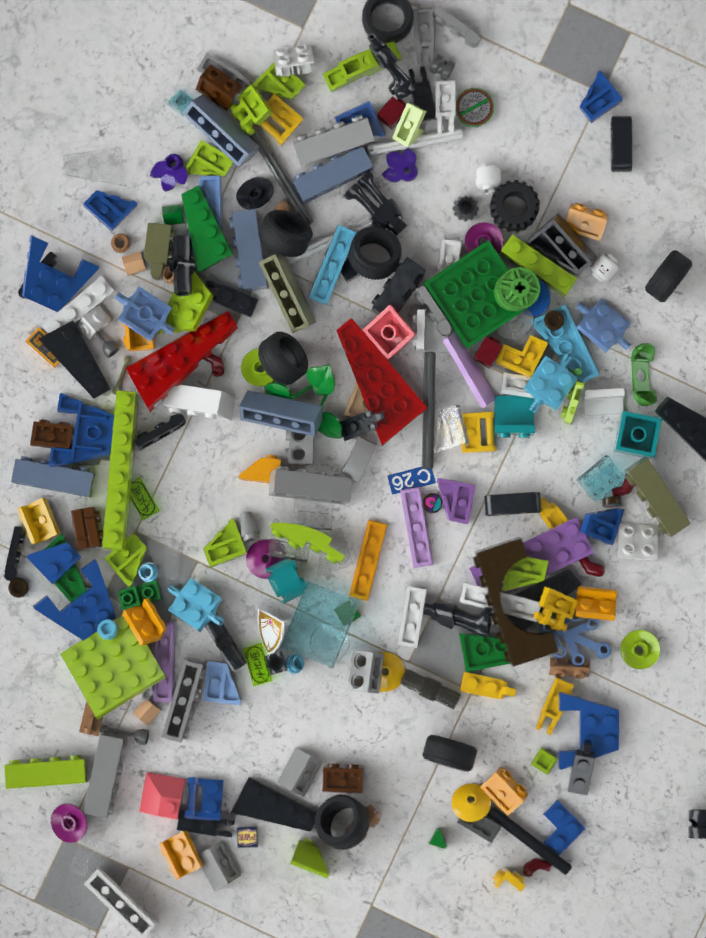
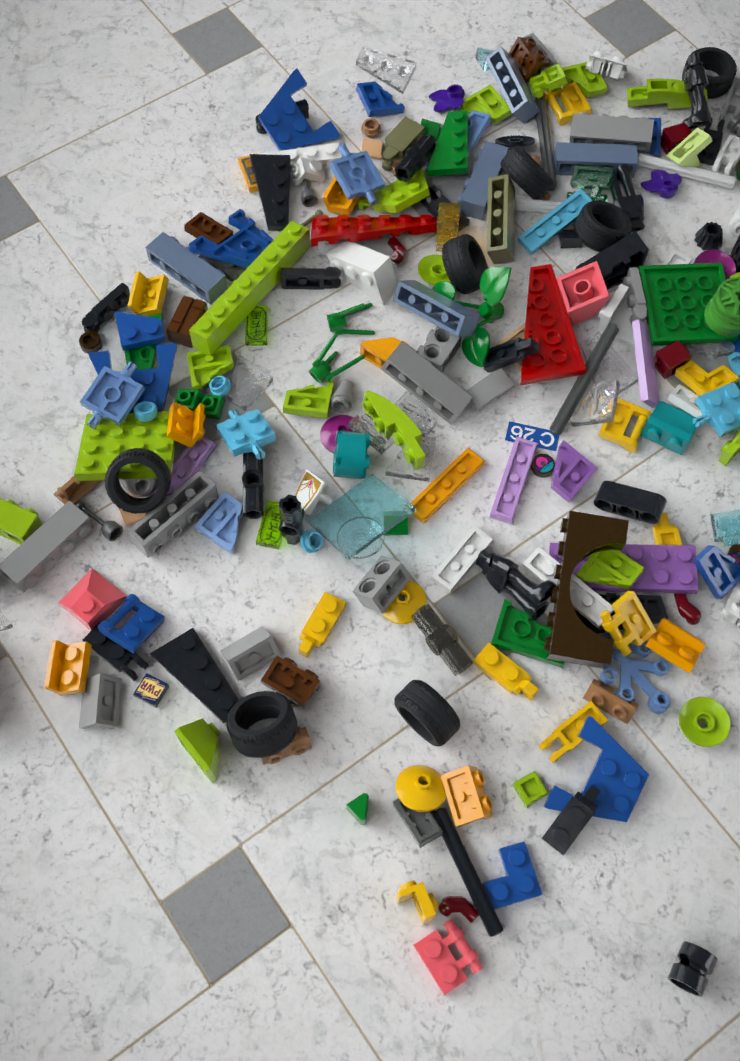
camera: 30 degrees right, 20 degrees down
(76, 634) = (112, 395): none -> medium blue plate
(156, 710) = (130, 503): none -> black tyre
(205, 460) = (338, 321): none -> green plant
(219, 515) = (321, 368): none -> green plant
(247, 323) = (447, 223): none -> clear yellow brick
(337, 721) = (320, 623): none -> yellow hinge
(341, 204) = (592, 178): none -> clear green plate
(542, 906) = (441, 962): none -> coral plate

